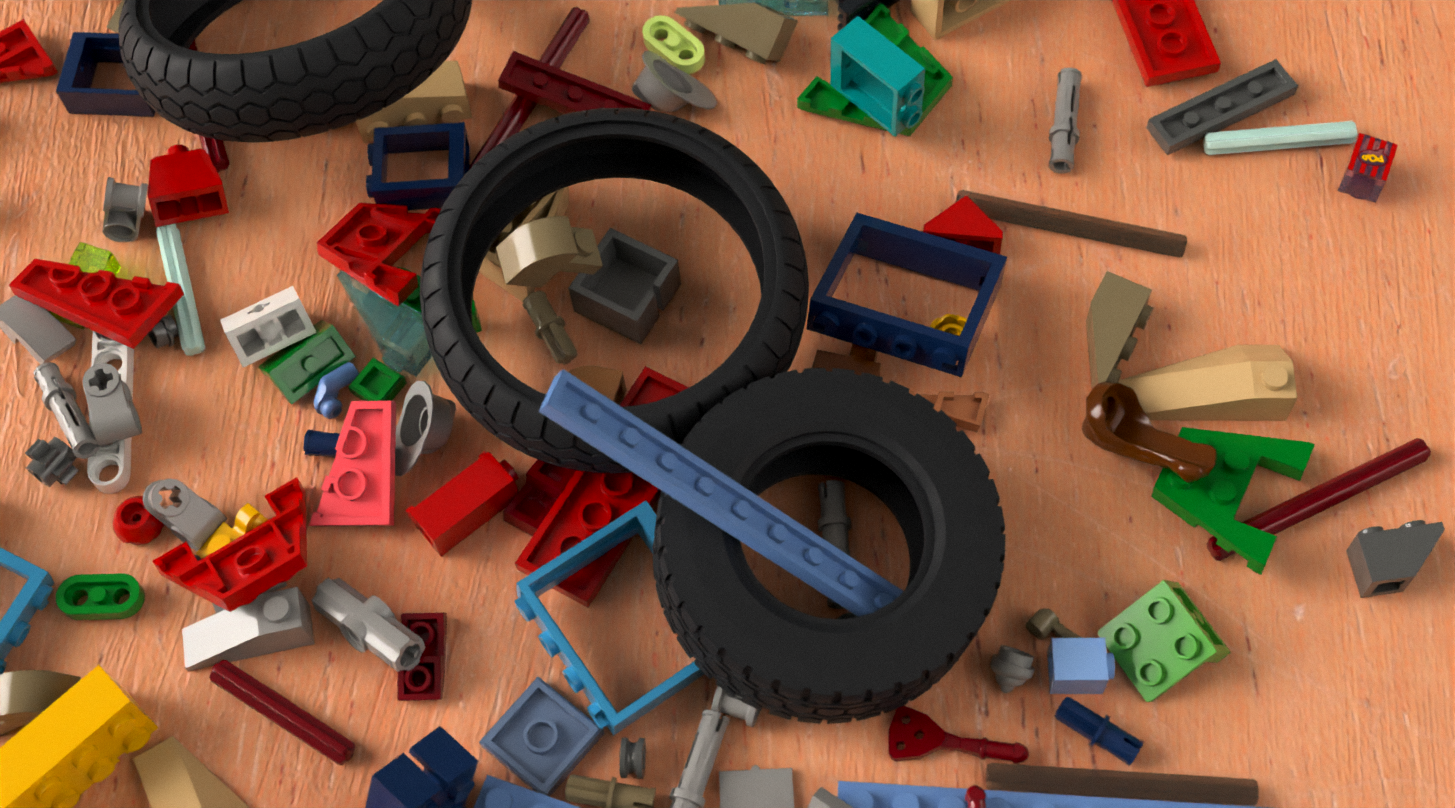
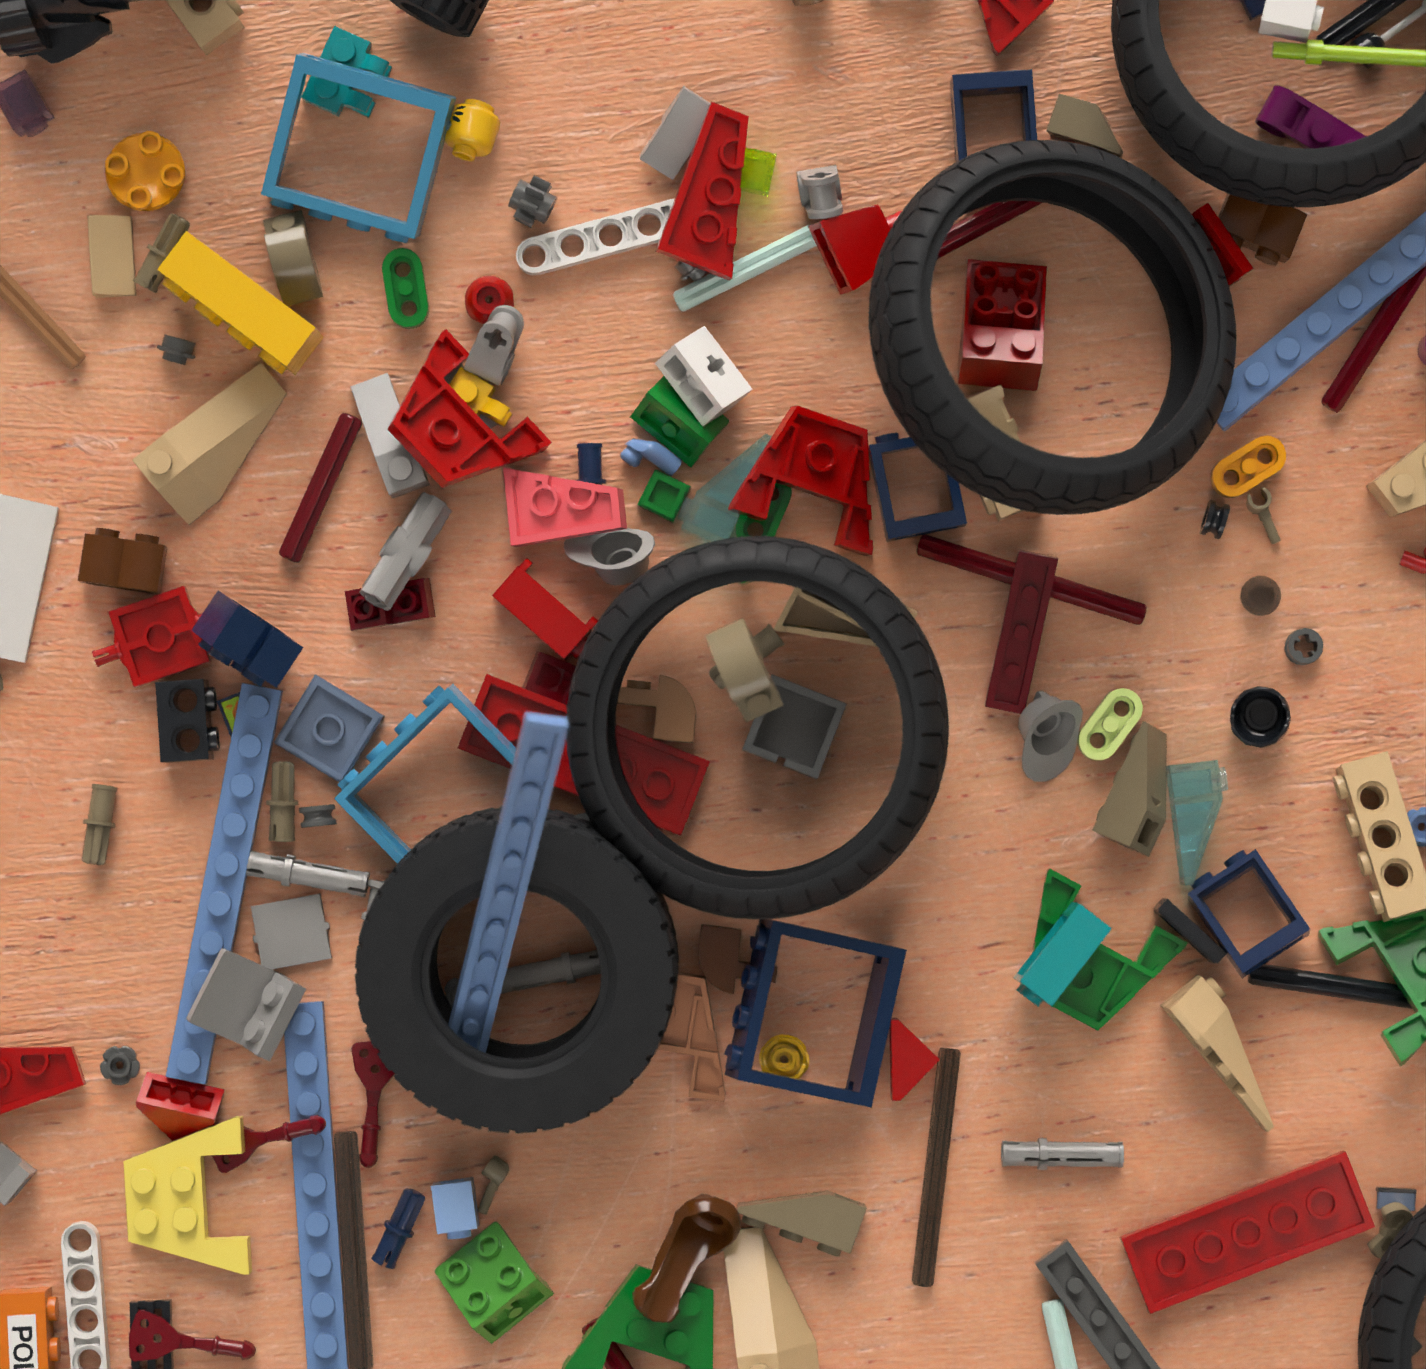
camera: 75 degrees right, 25 degrees up
(61, 399) = (601, 187): light grey pin -> none
(110, 405) = (581, 251): light grey piece -> none
(1012, 667) = (449, 1146): light grey plate -> none

